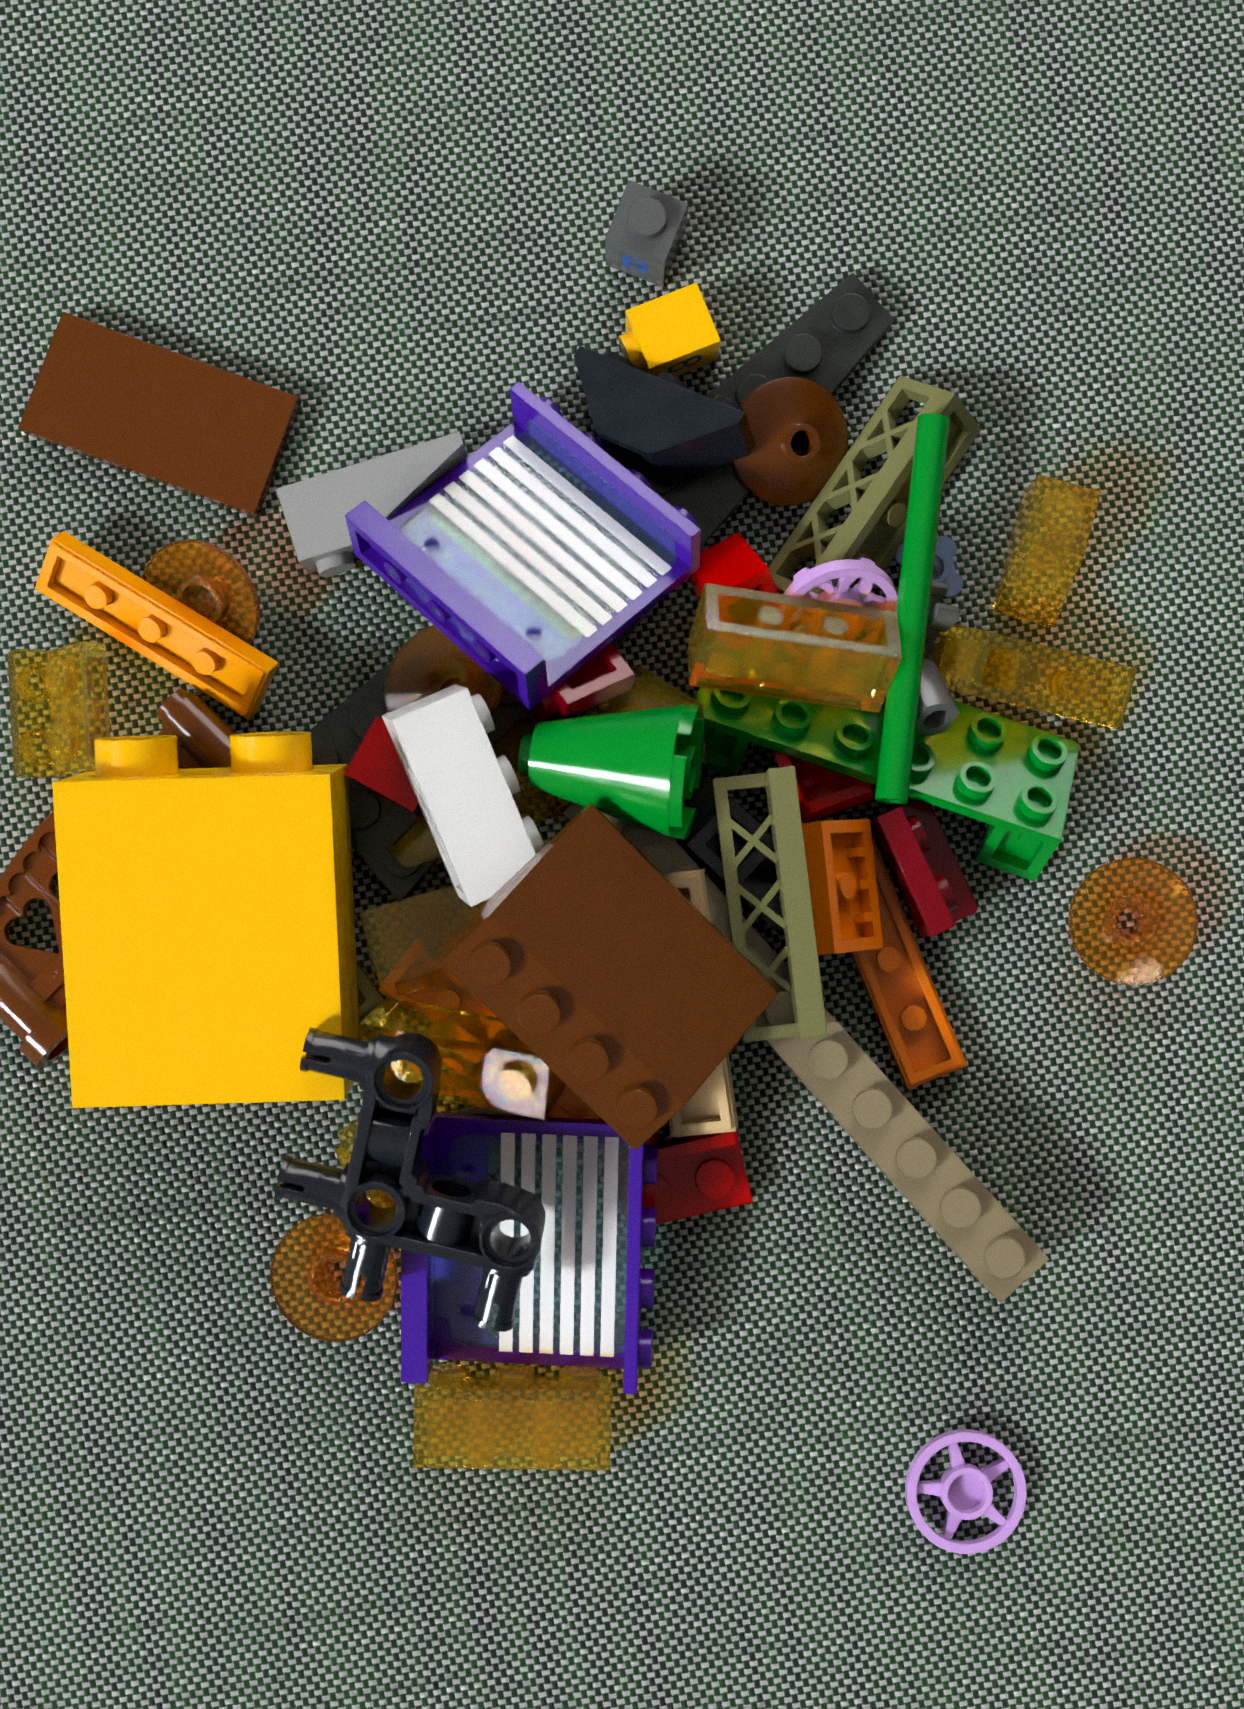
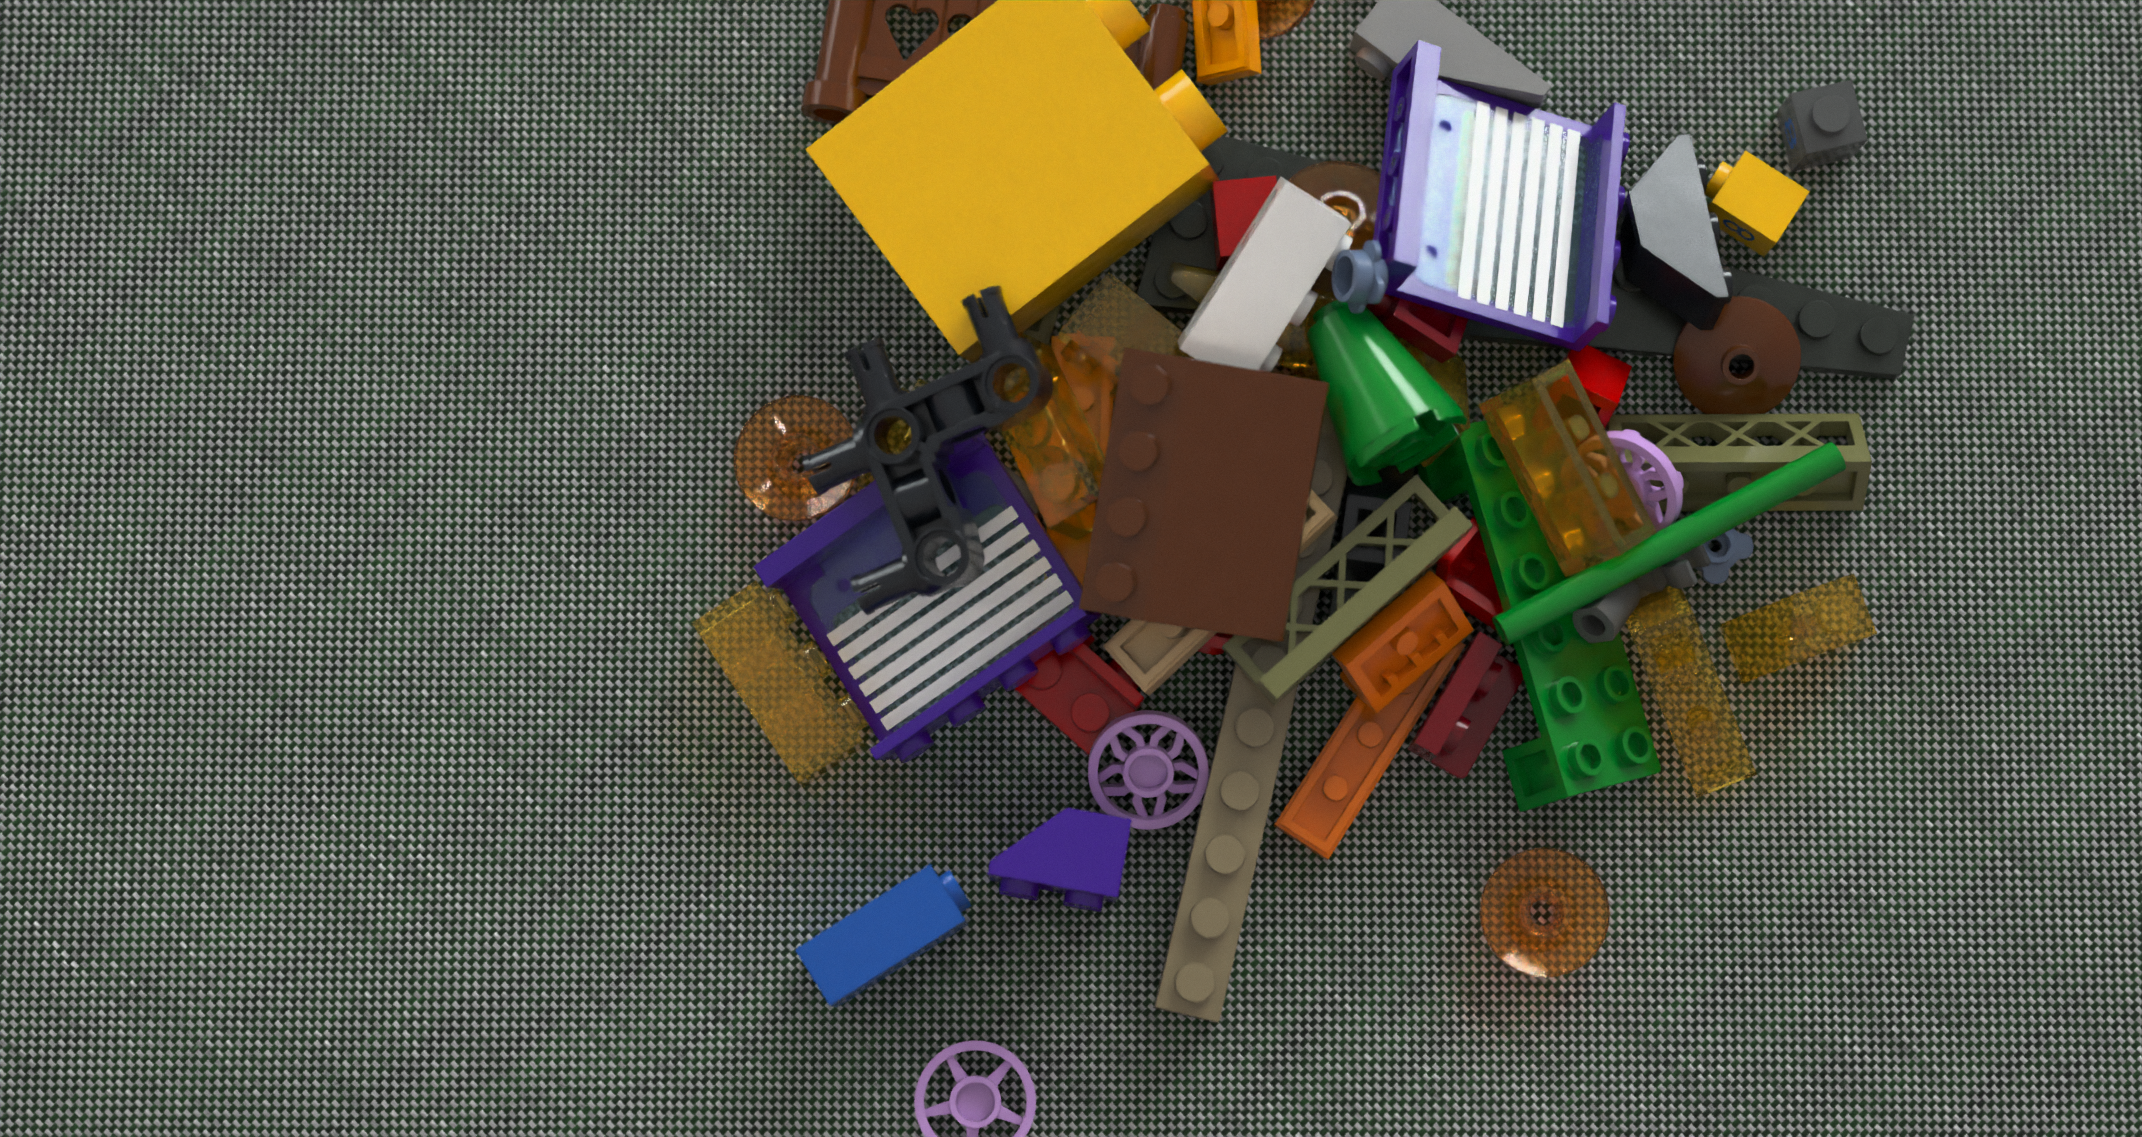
camera: 55 degrees right, 5 degrees down
(518, 712) = (1360, 276): none -> sand blue plate
(787, 1488) = (884, 935): none -> blue brick
(794, 1164) = (1148, 769): none -> lavender wheel
(827, 1291) = (1069, 855): none -> dark purple slope

